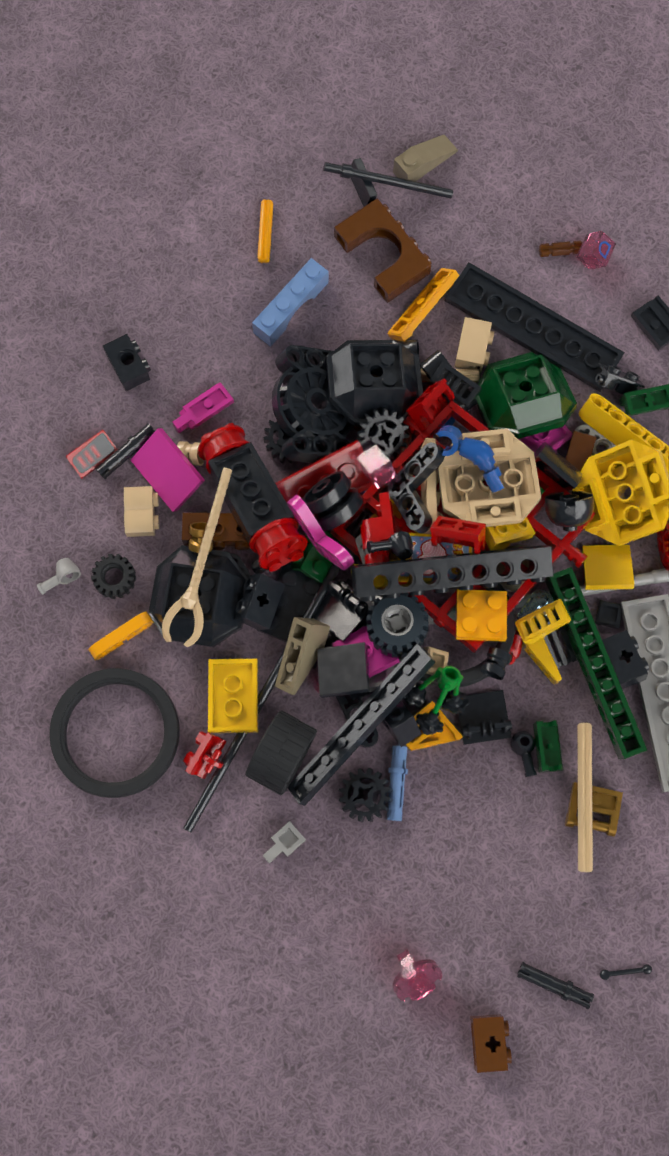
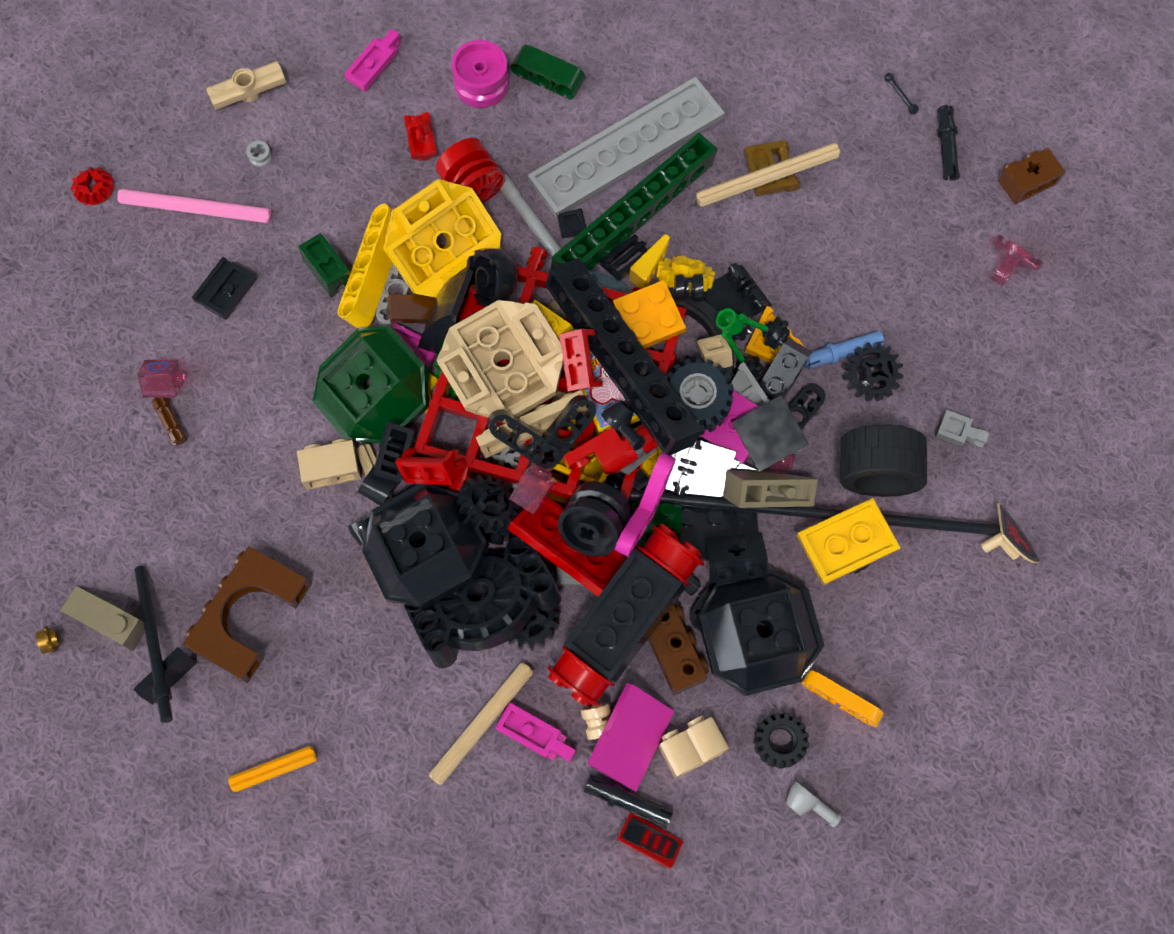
camera: 115 degrees left, 5 degrees down
(75, 694) = (993, 609): black tyre -> none
(121, 350) = (514, 874): black brick -> none
(176, 833) = (1010, 539): none -> shield
(190, 598) = (778, 623): tan piece -> none
(197, 531) = (699, 650): pearl gold wheel -> none
(206, 756) = (924, 541): red hips -> none
(230, 377) = (481, 724): none -> tan axle
(302, 287) = (358, 689): medium blue arch -> none
(361, 724) = (800, 386): black plate -> none
(423, 304) = (300, 539): light orange plate -> none
(424, 119) = (47, 640): none -> pearl gold plate
(476, 451) = (481, 380): blue piece -> none
(519, 680) = (684, 266): none -> yellow gear
(524, 751) = (746, 257): black bar -> none
(528, 627) = (635, 267): yellow slope -> none
(532, 325) = (278, 414): black plate -> none
(547, 746) = (735, 228): dark green hinge -> none
(608, 567) = (526, 231): yellow tile -> none
(612, 375) = (310, 299): black hinge -> none
(624, 645) = (619, 170): black brick -> none

